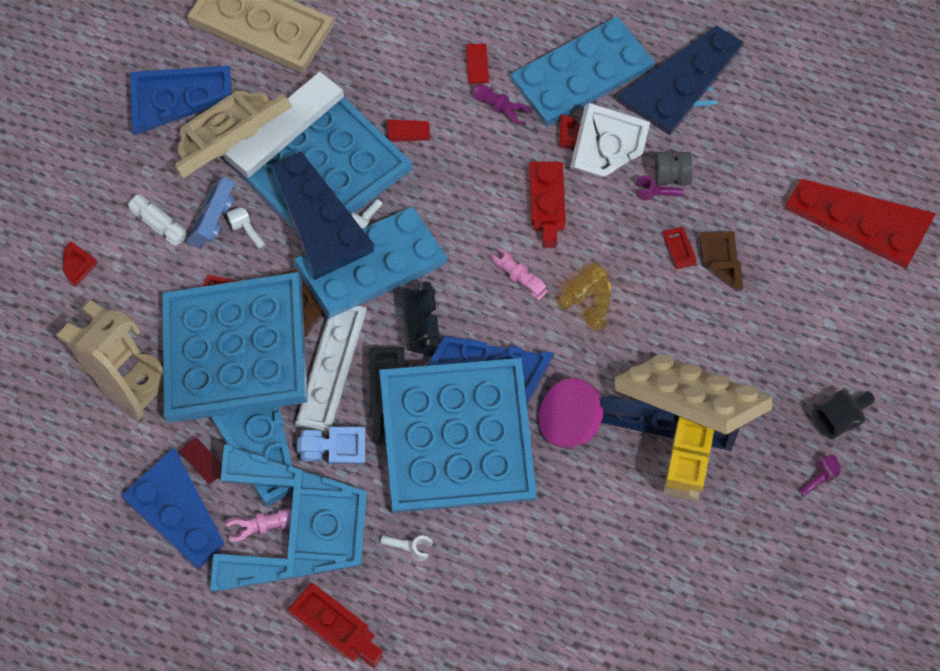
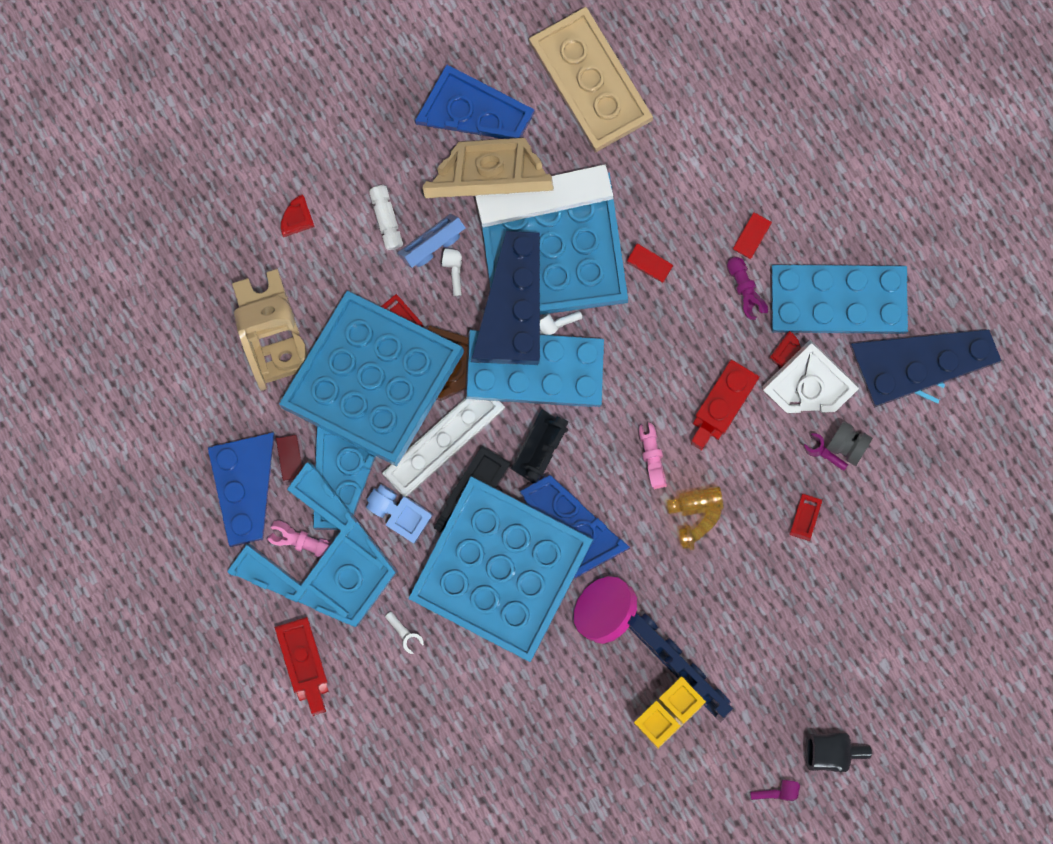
camera: 40 degrees right, 15 degrees up
(693, 393) = (709, 662): tan plate -> none
(720, 257) = (834, 549): reddish brown slope -> none
(867, 221) = (986, 597): red wing -> none

